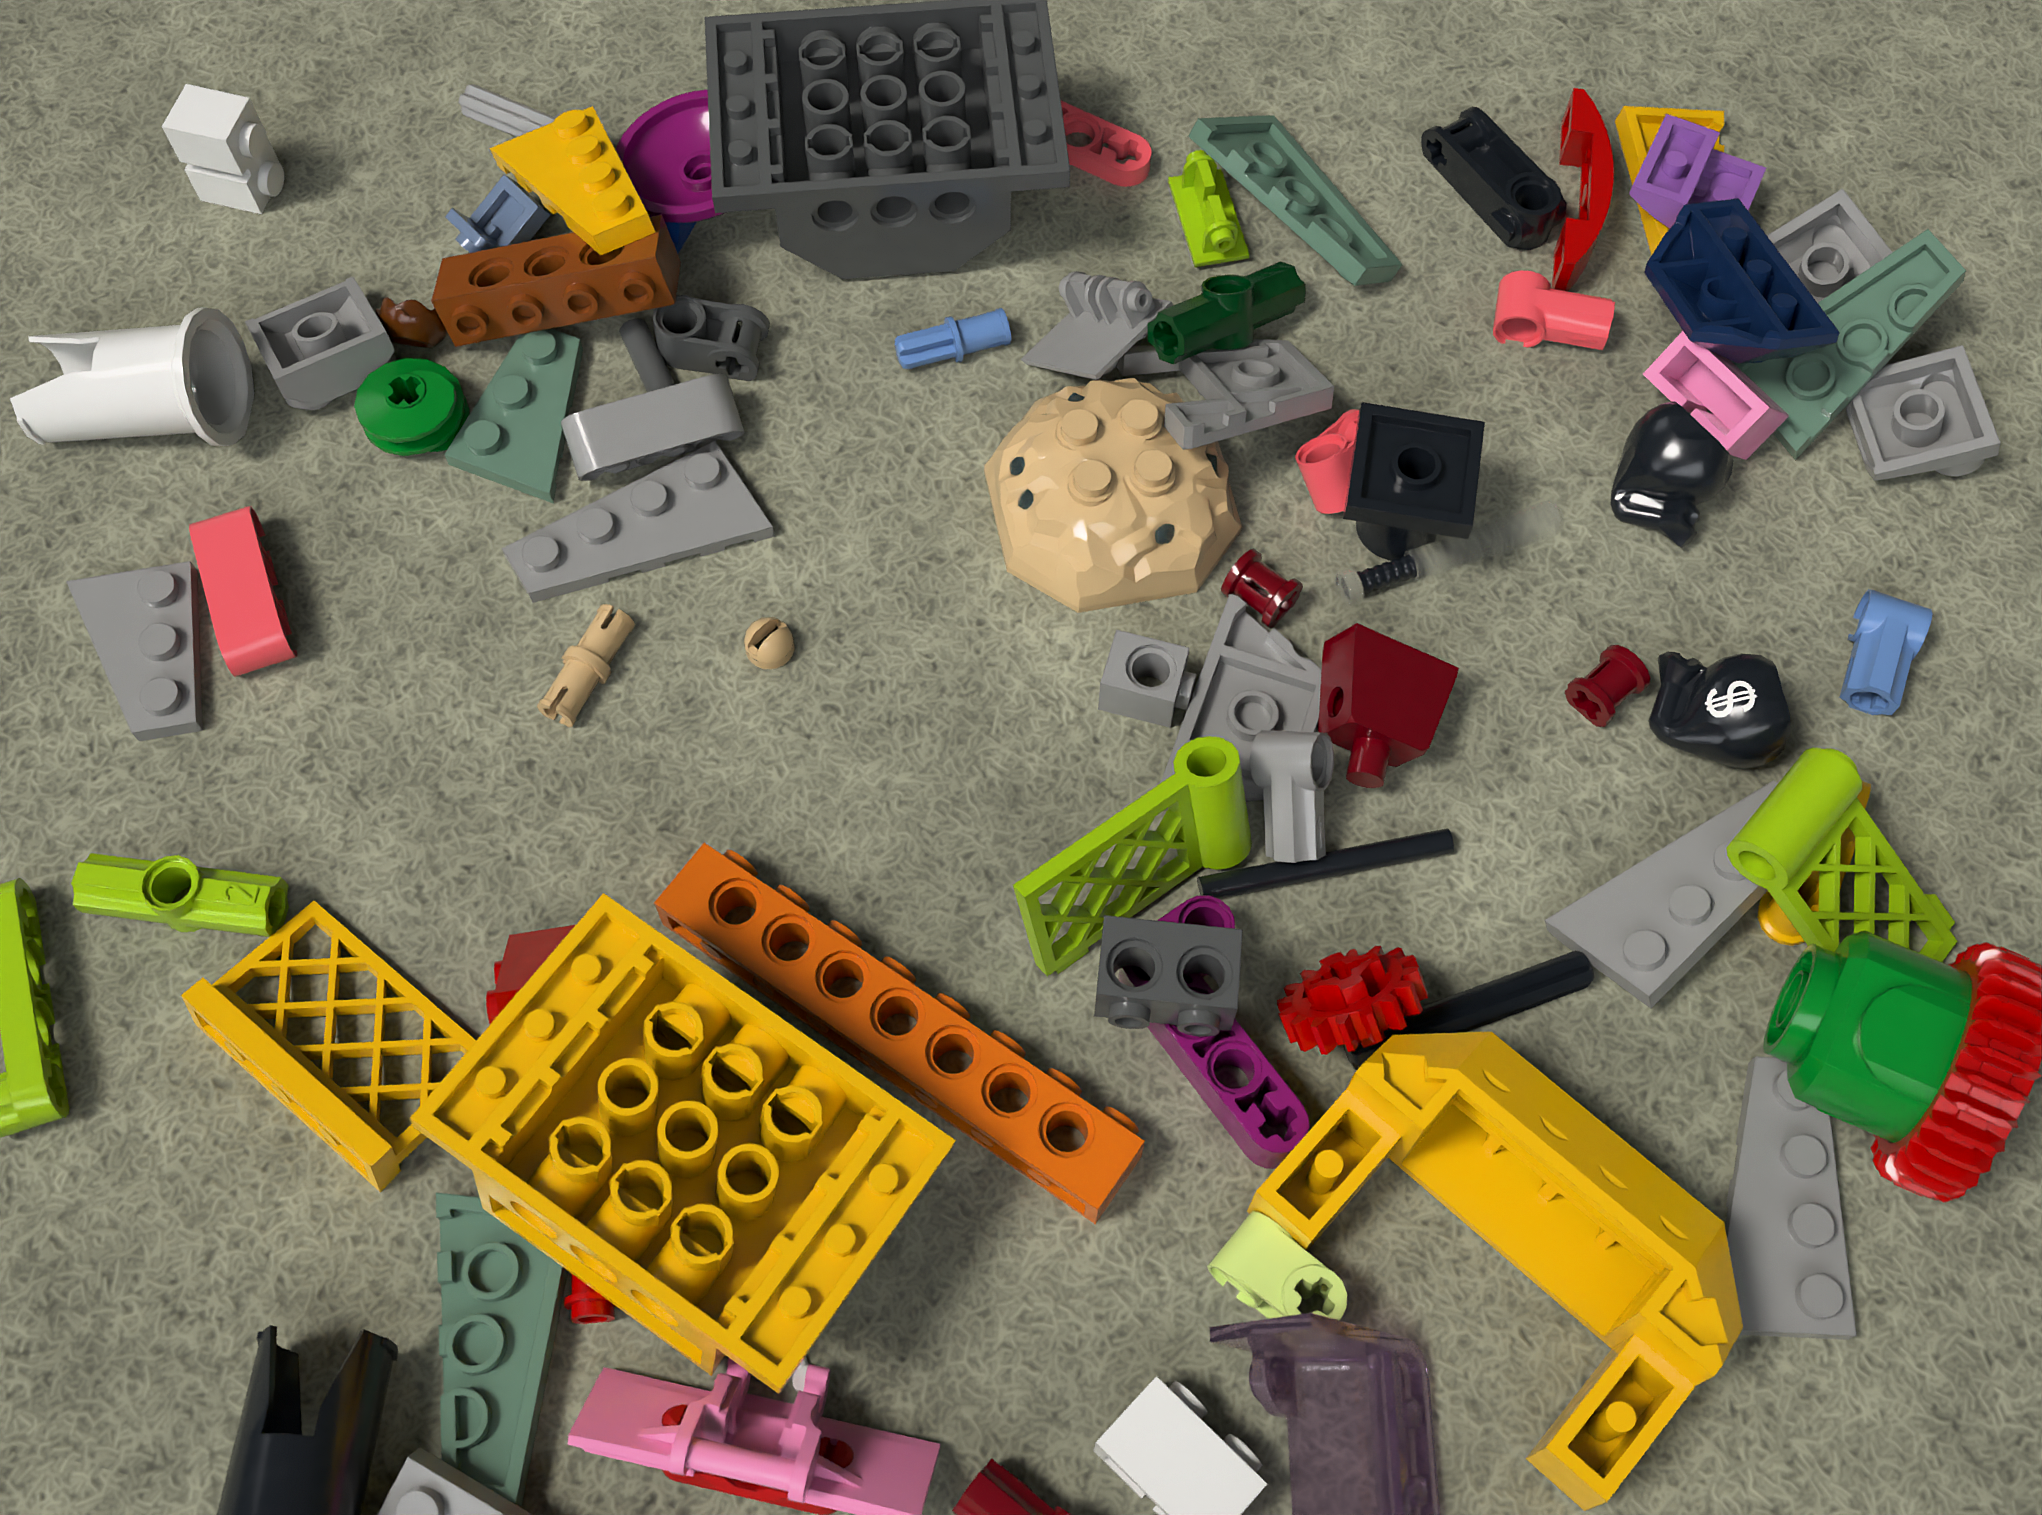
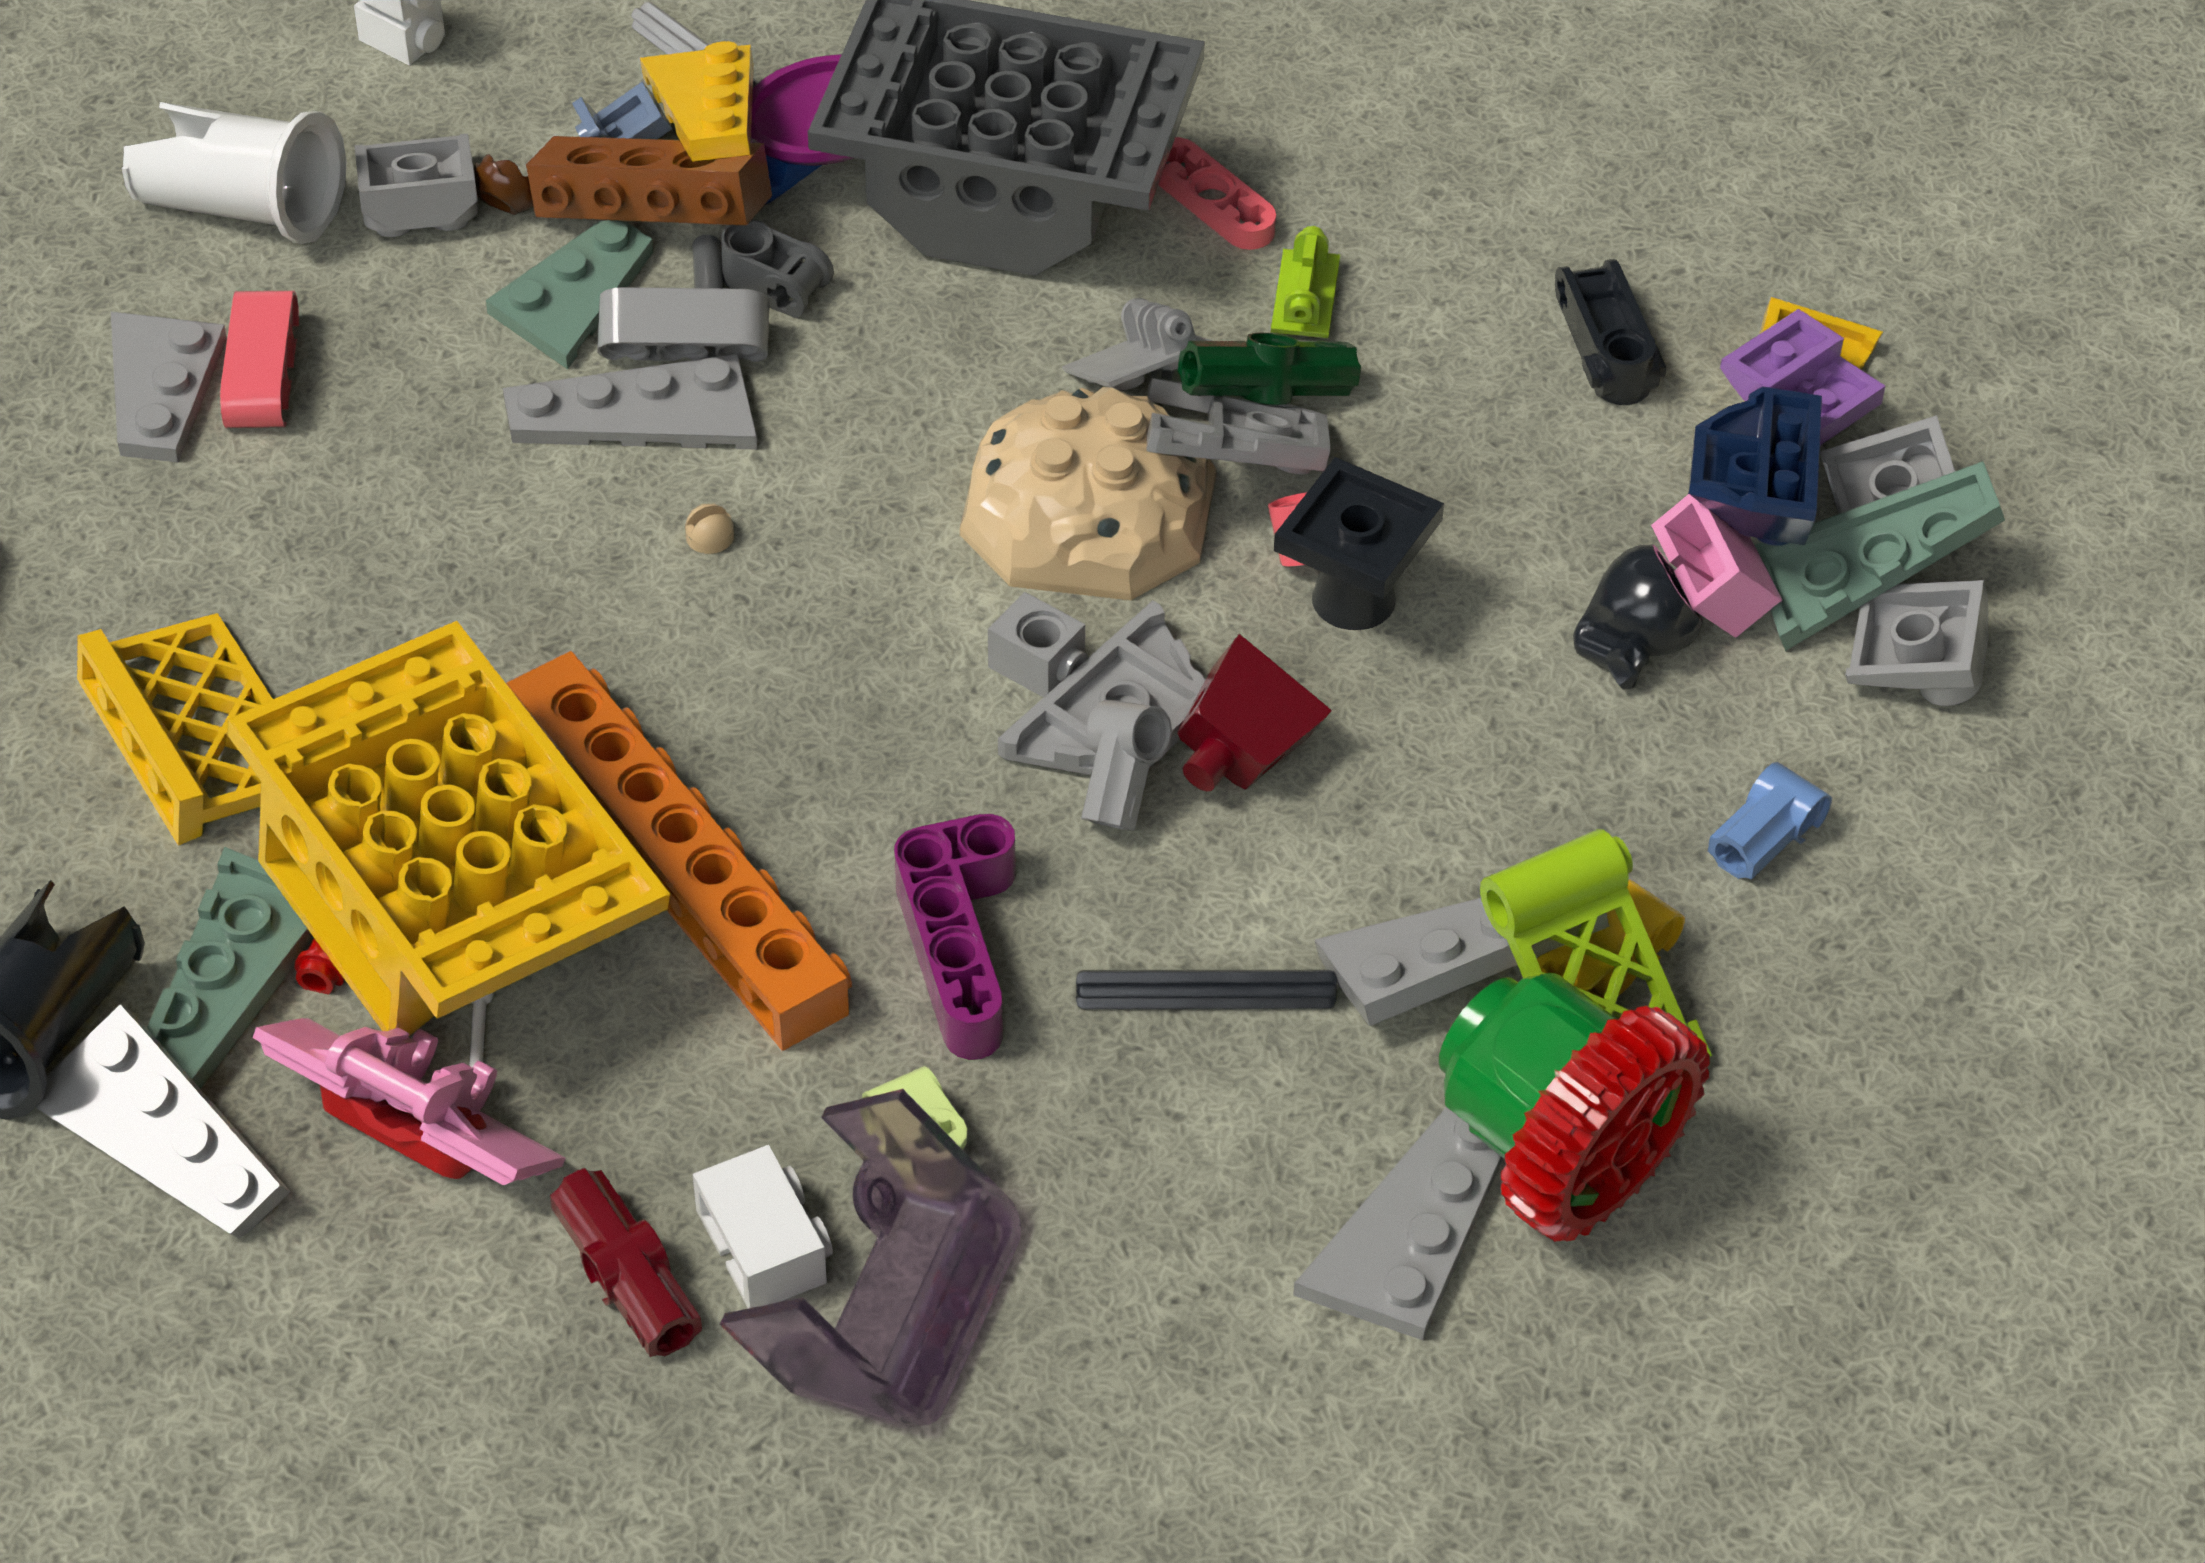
camera: 20 degrees right, 15 degrees down
(147, 888) = (107, 572): lime piece -> none
(411, 407) = (473, 253): green piece -> none
(586, 665) = (536, 500): tan pin -> none
(953, 339) = (1001, 330): medium blue axle -> none
(1168, 956) = (925, 850): dark grey brick -> none
(1203, 822) = (1031, 763): lime piece -> none
(1242, 580) = (1189, 606): dark red bush -> none
(1298, 192) = (1399, 287): sand green wing -> none
(1333, 864) = (1137, 844): black bar -> none
(1352, 999) = (1089, 931): red gear -> none
(1485, 540) = (1423, 630): clear piece -> none
(1534, 312) = (1584, 451): coral piece -> none
(1557, 1202) = (1184, 1120): yellow wedge -> none
(1583, 145) = (1664, 405): red slope -> none
(1608, 685) = (1479, 774): dark red bush -> none
(1722, 711) = (1570, 804): black piece -> none

